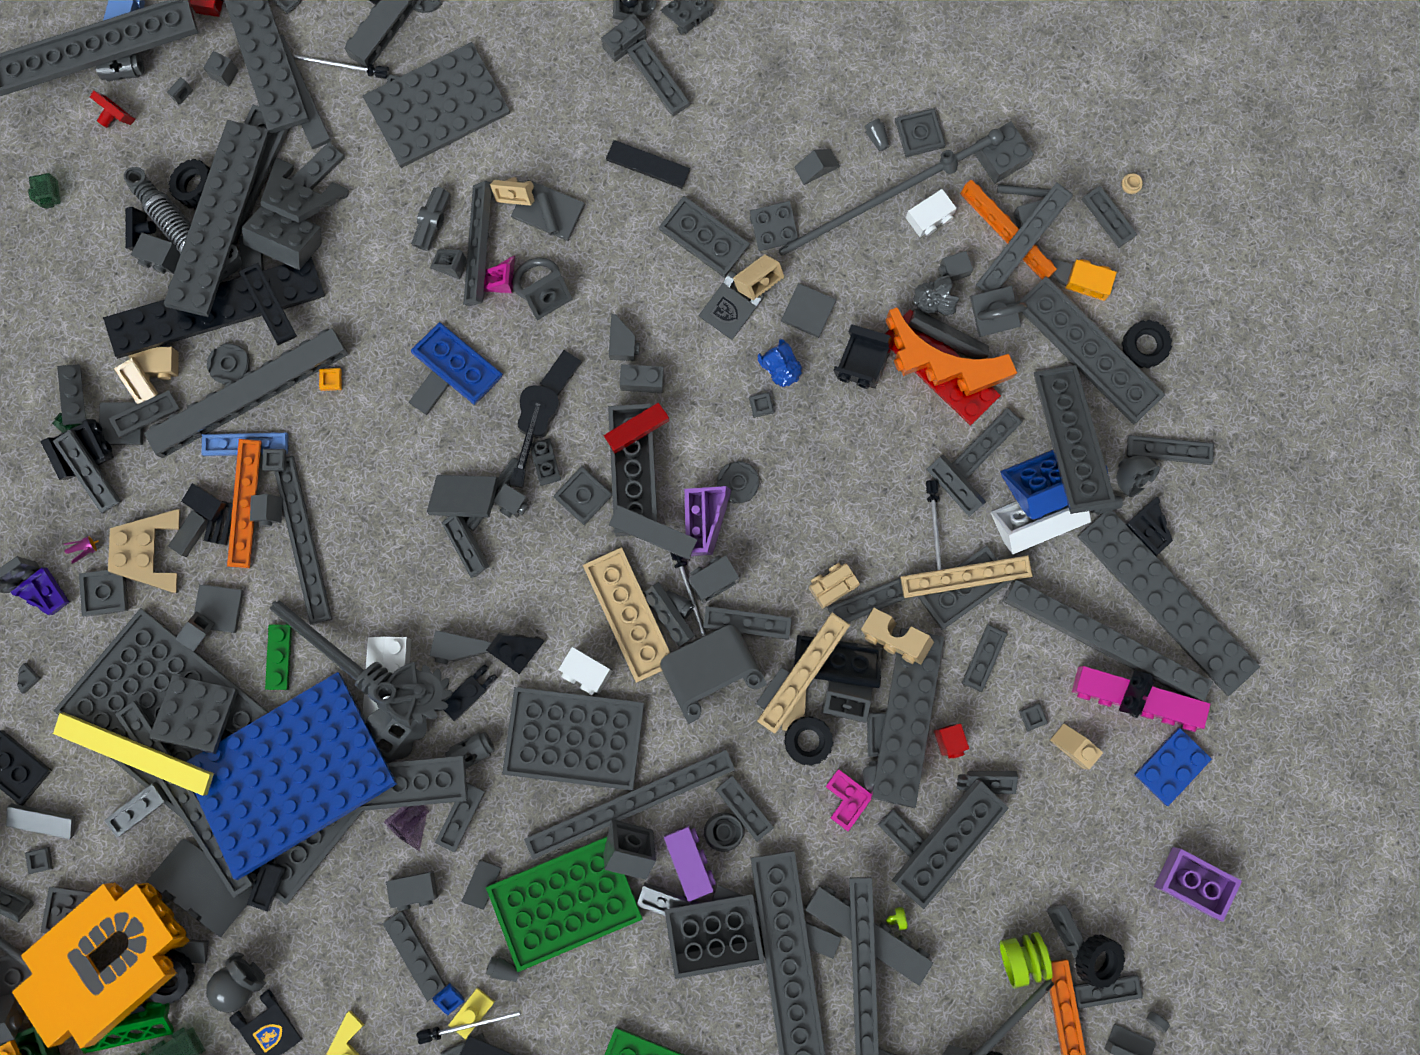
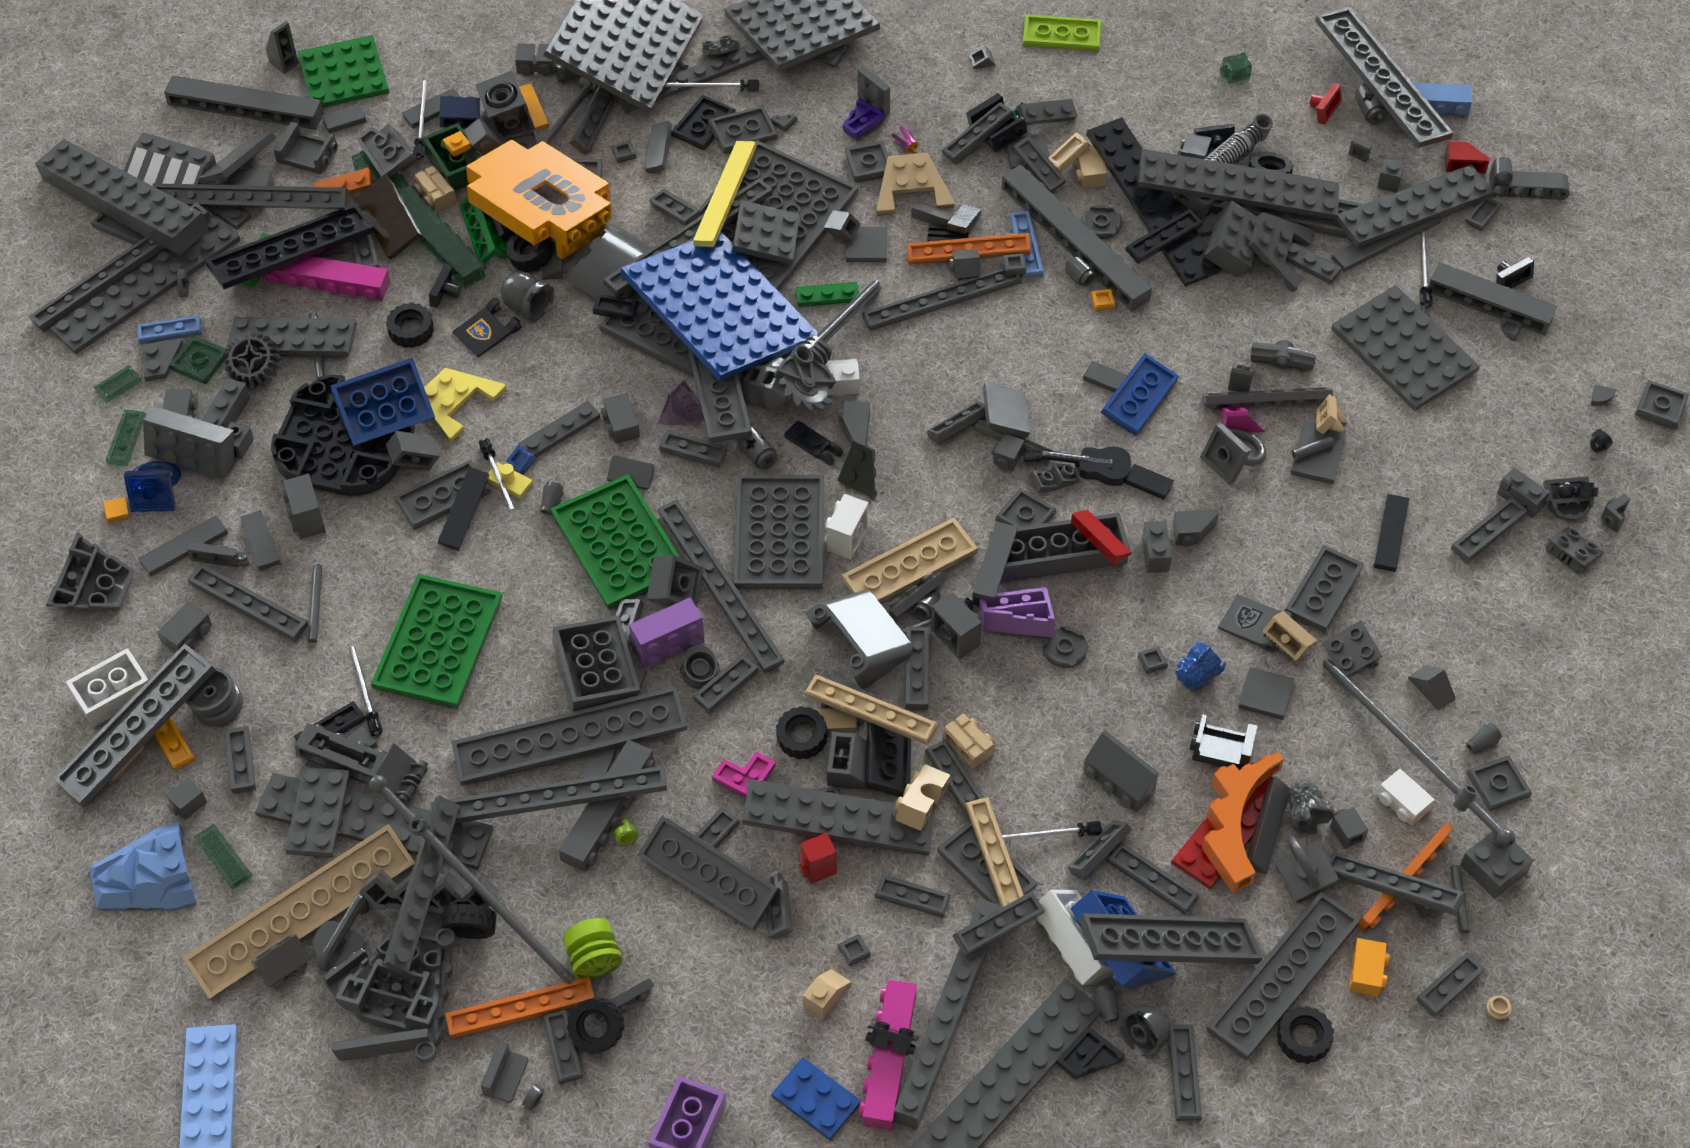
camera: 85 degrees right, 25 degrees down
(31, 724) = (744, 125): none -> dark grey tile
(292, 395) = (1080, 271): none -> dark grey brick
(887, 454) = (1120, 772): none -> dark grey slope
(1038, 585) = (998, 923): none -> dark grey tile

